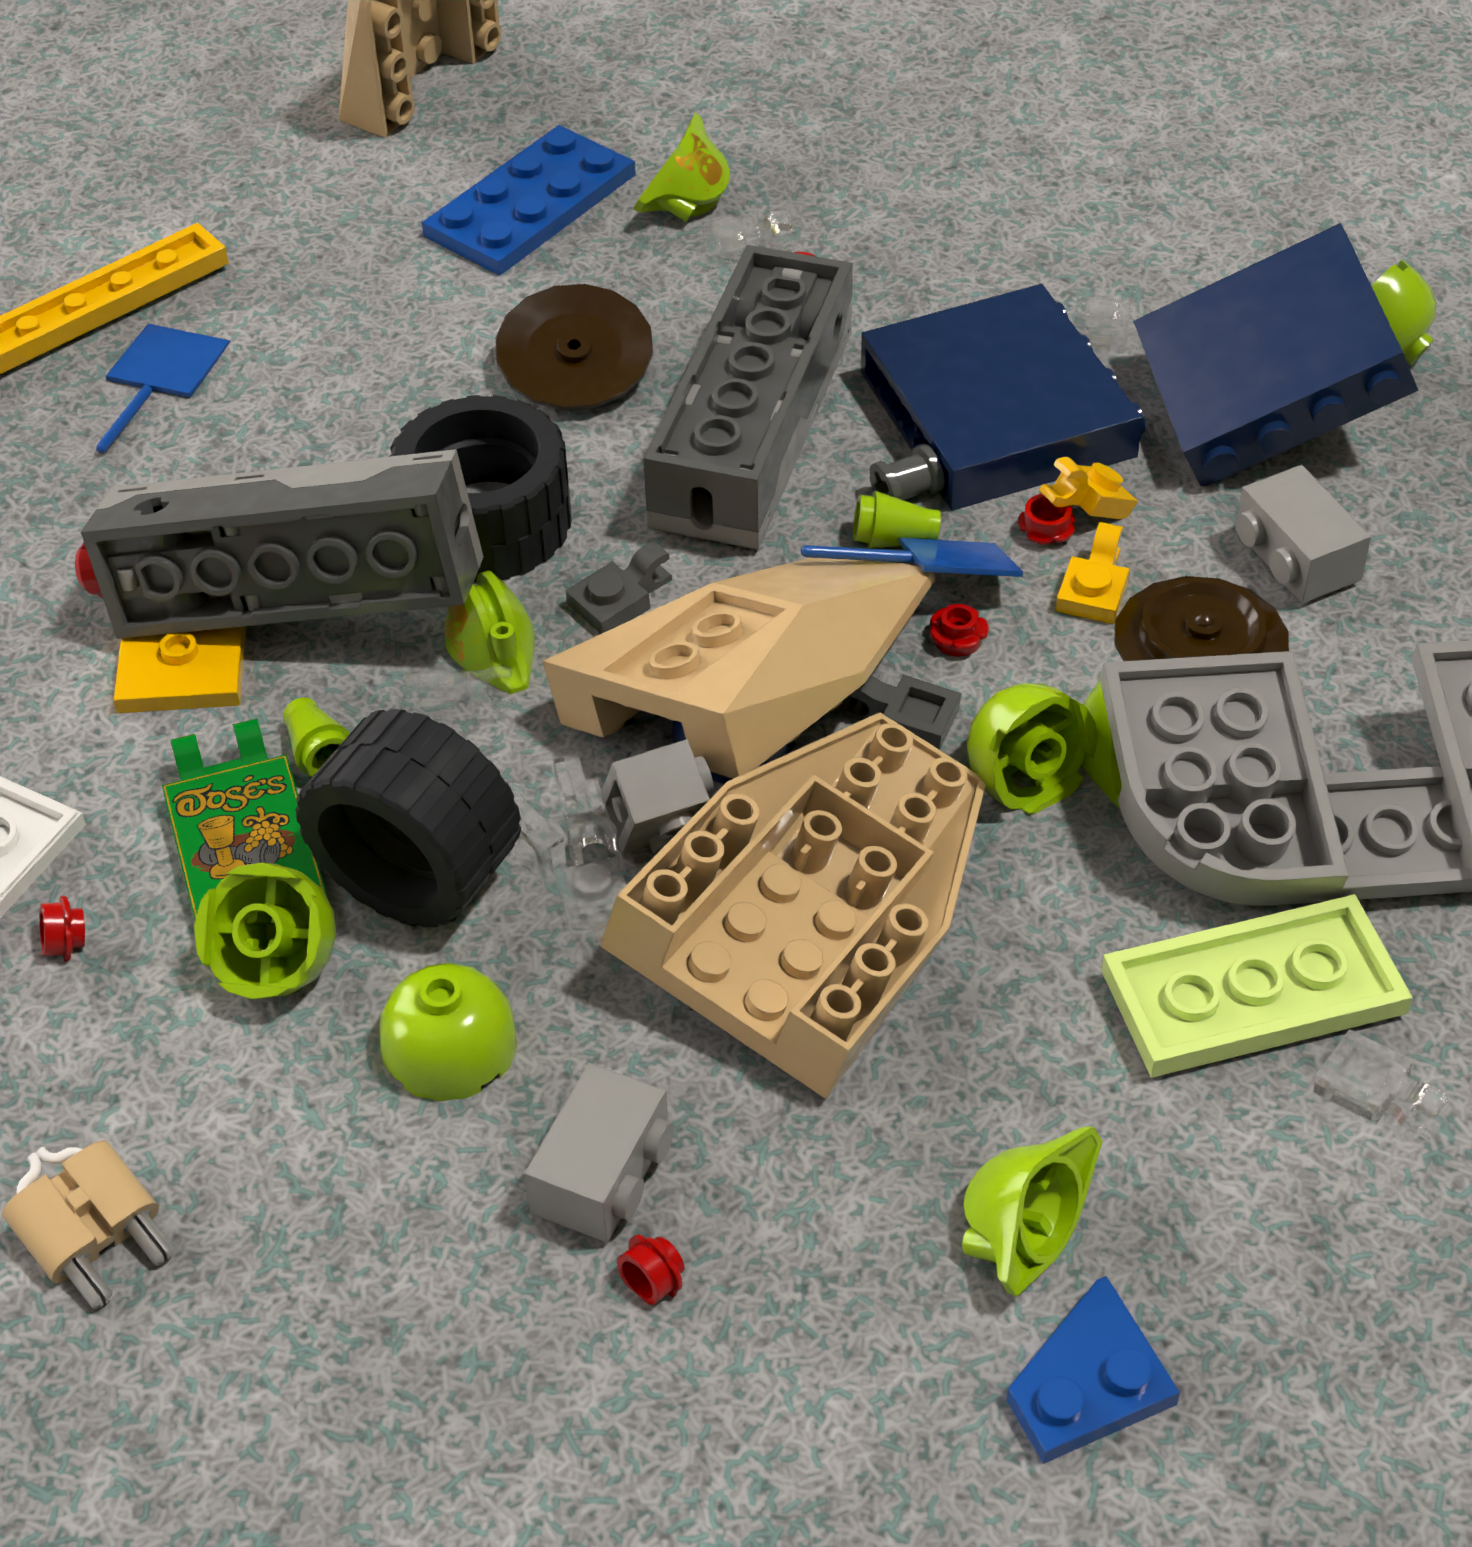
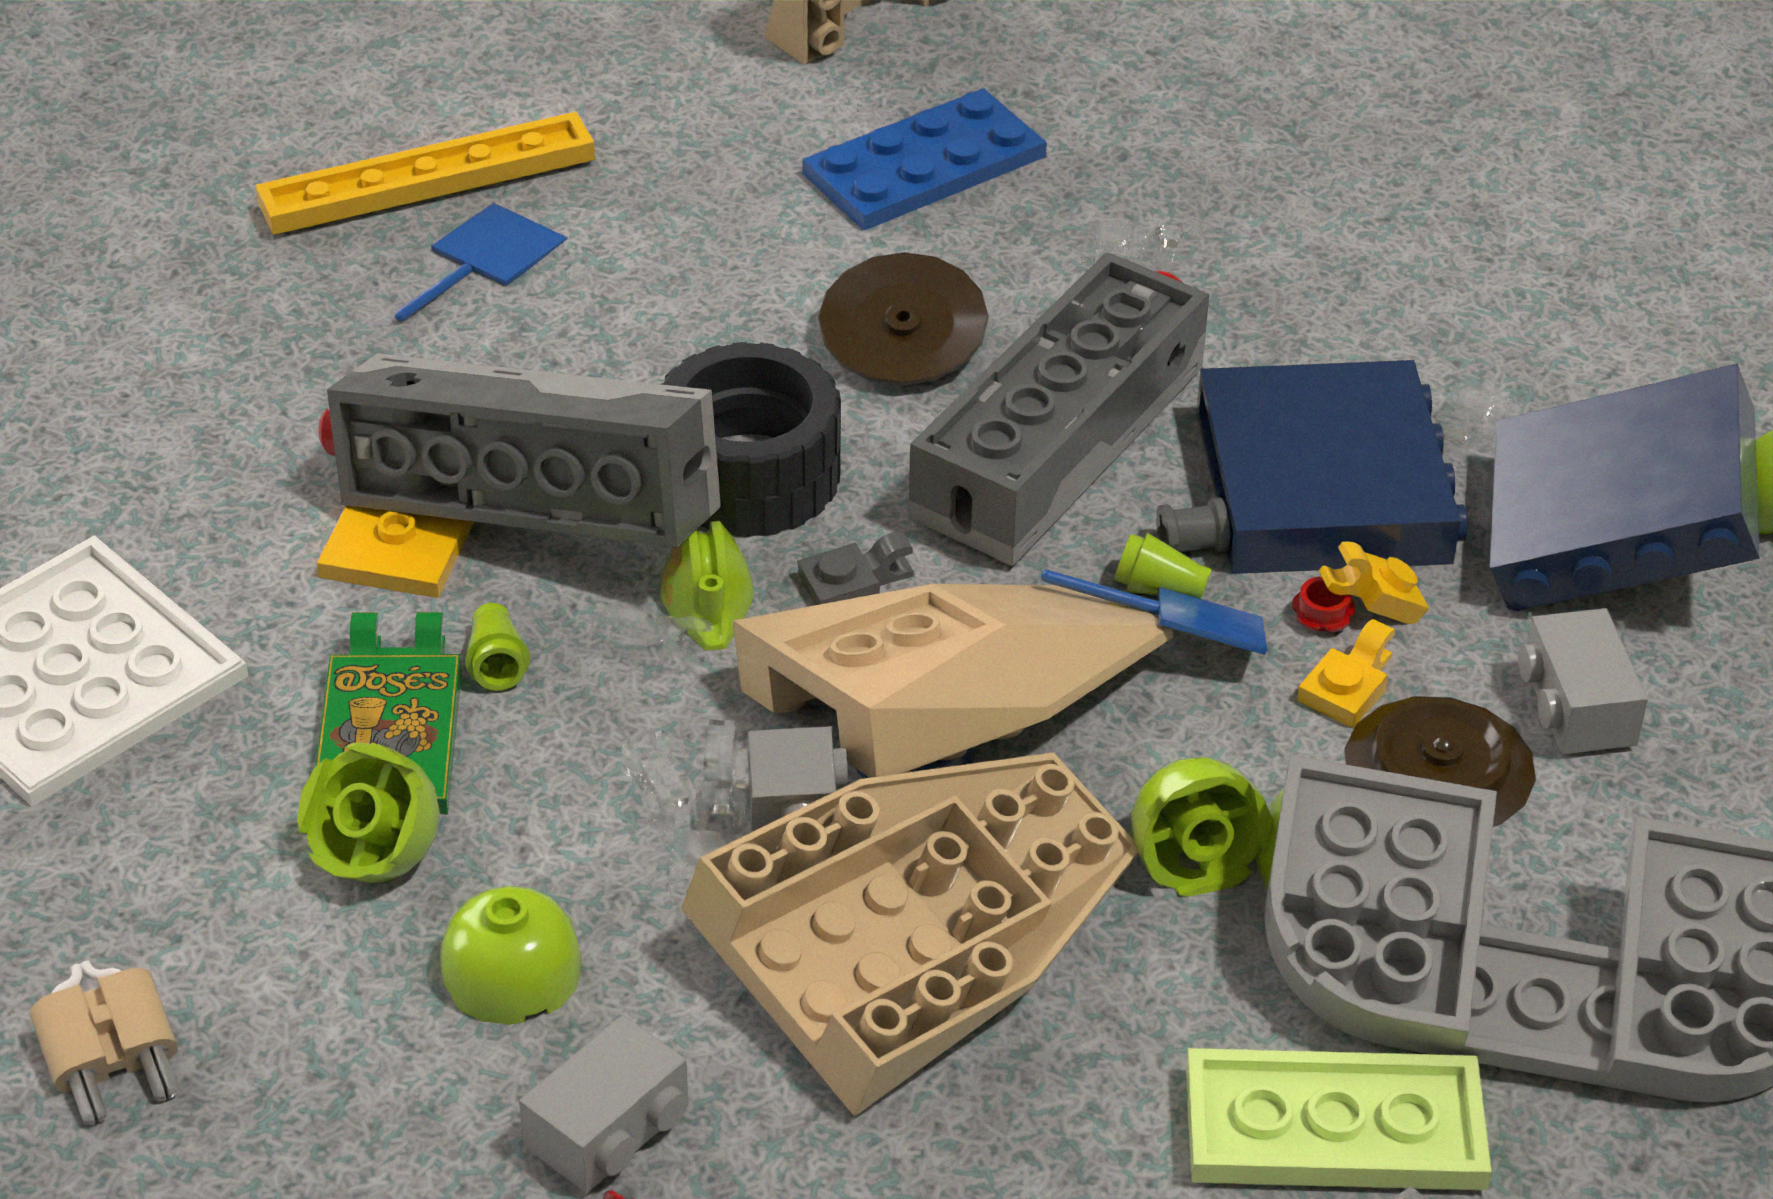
camera: 15 degrees right, 5 degrees down
(61, 928) = (185, 766): red plate -> none
(409, 817) = (540, 739): black tyre -> none
(690, 178) = (1093, 171): lime hat -> none
(914, 704) = (1099, 760): dark grey plate -> none
(958, 630) = (1183, 694): red plate -> none

